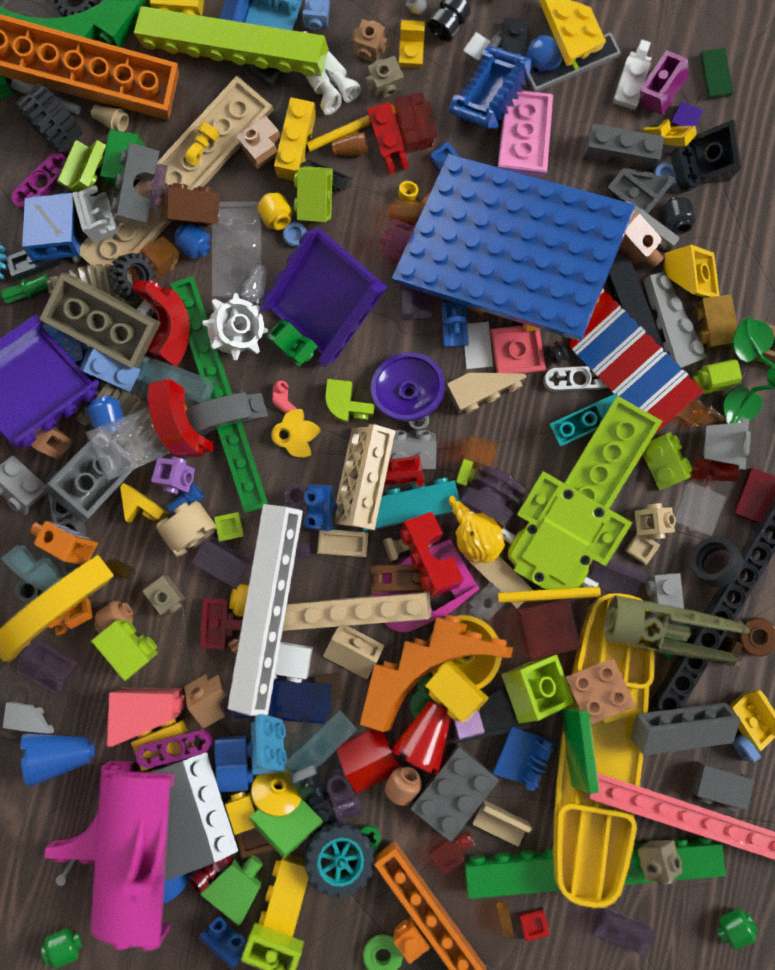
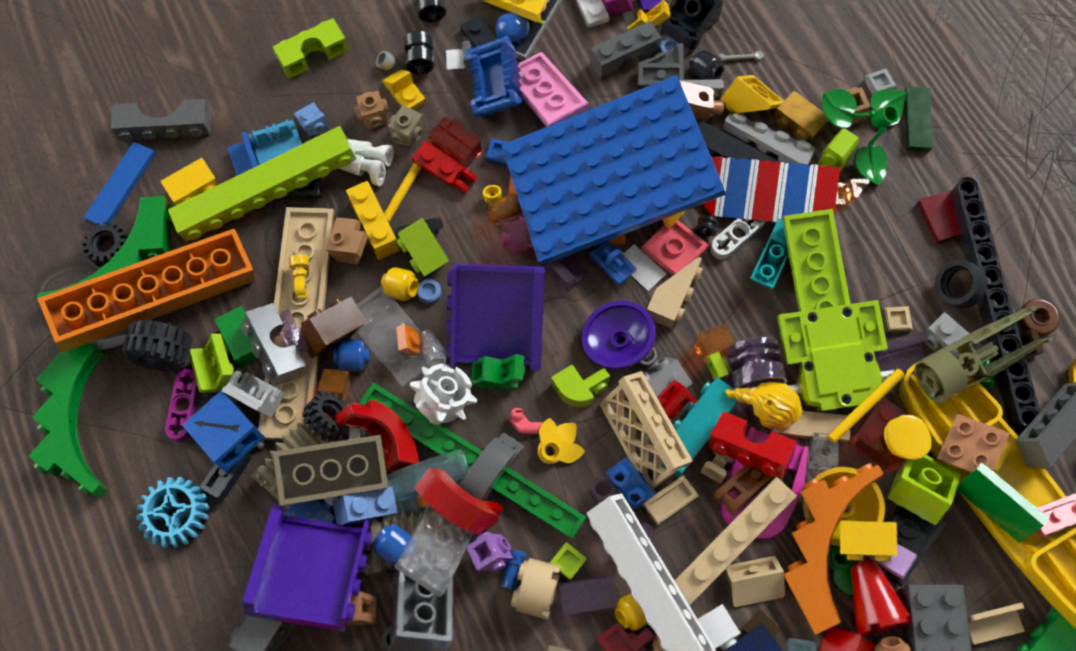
camera: 35 degrees left, 15 degrees down
(25, 289) = (236, 501): green axle -> none
(111, 117) = (204, 312): tan cone -> none
(135, 501) = (471, 602): yellow slope -> none
(241, 262) = (408, 340): none -> orange plate
(350, 145) = (419, 193): dark orange cone -> none
(524, 757) = (963, 553): blue hinge -> none
(555, 645) = (907, 437): none -> yellow piece
(655, 521) = (883, 293): tan brick -> none
(666, 461) = (857, 243): lime bracket -> none
(699, 508) = (910, 259): clear piece -> none
(718, 470) = (899, 217): clear red plate -> none
(728, 443) = (889, 192): light grey container -> none
(733, 239) = (757, 56): none -> light grey hinge

